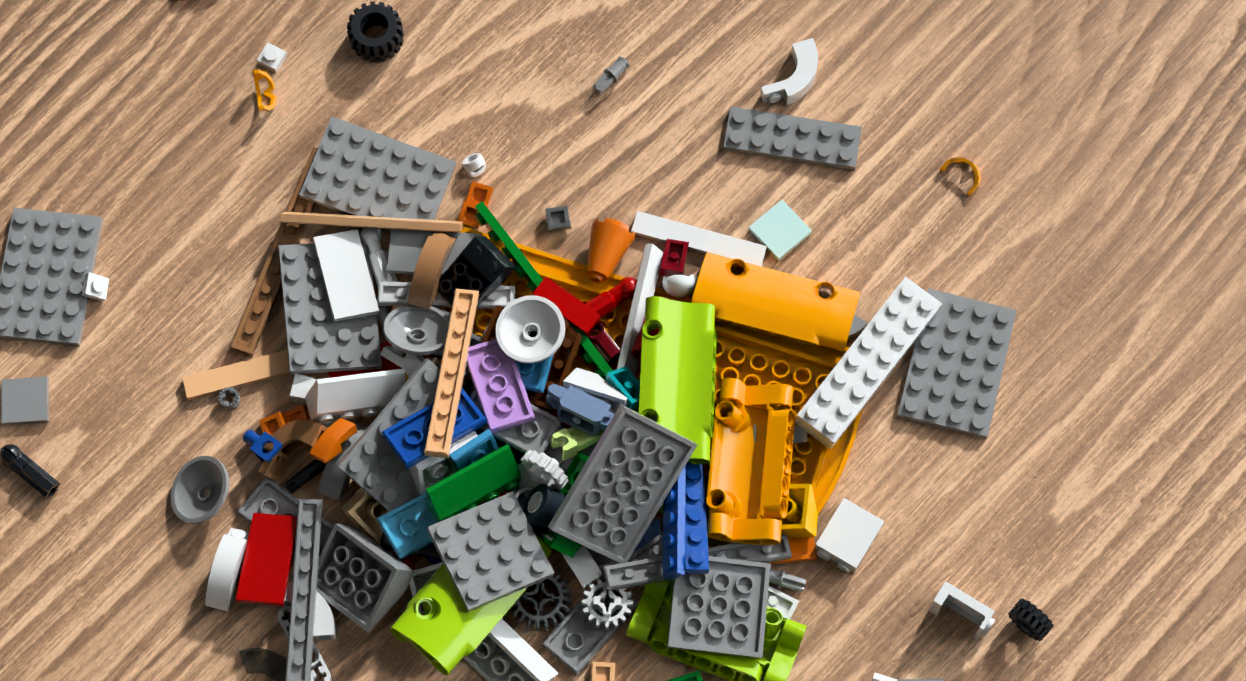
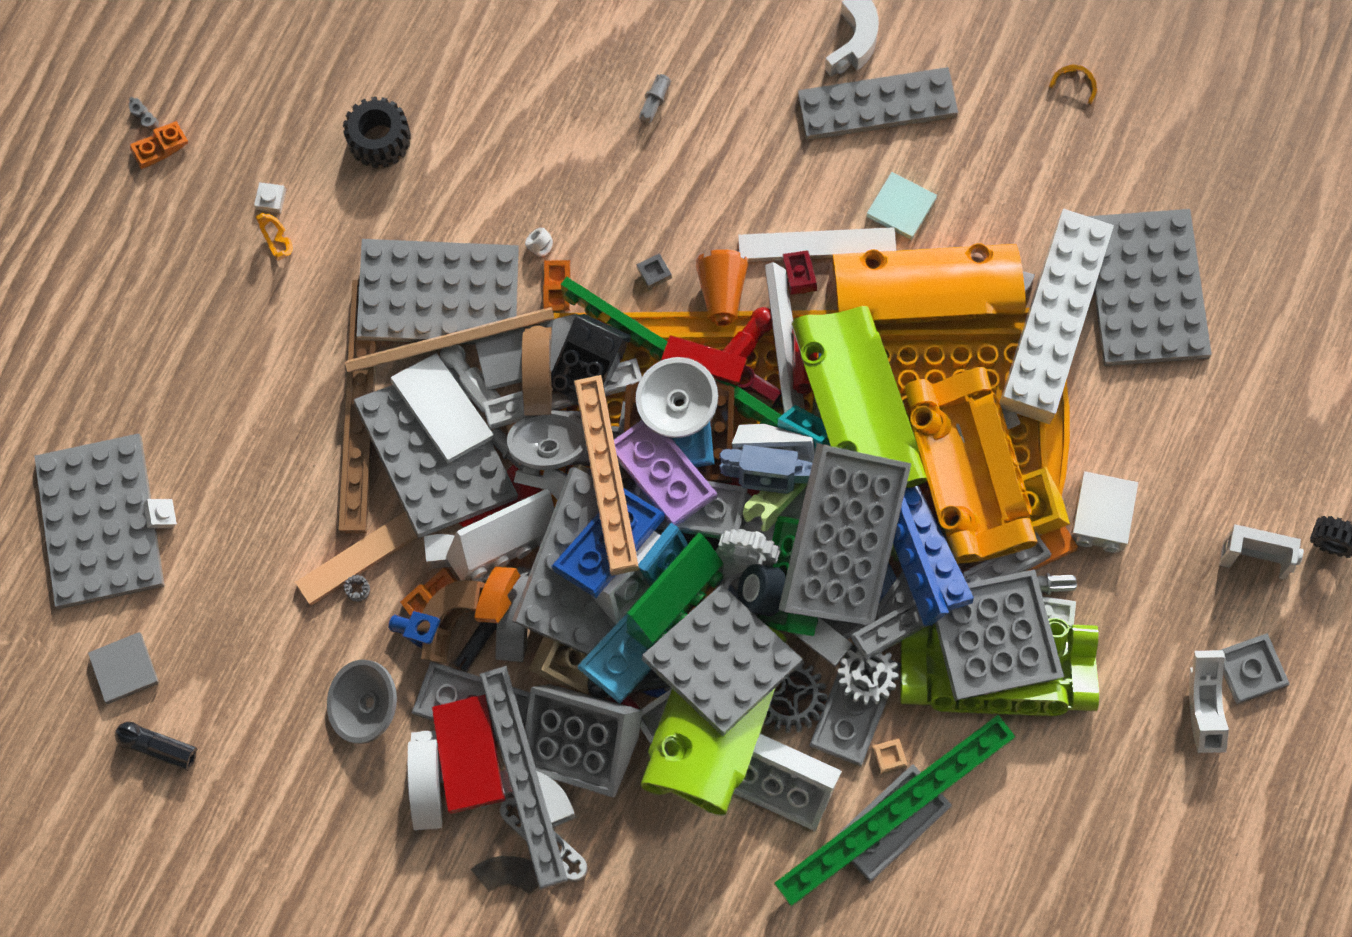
camera: 15 degrees left, 0 degrees up
(680, 285) = (817, 299): white hair -> none

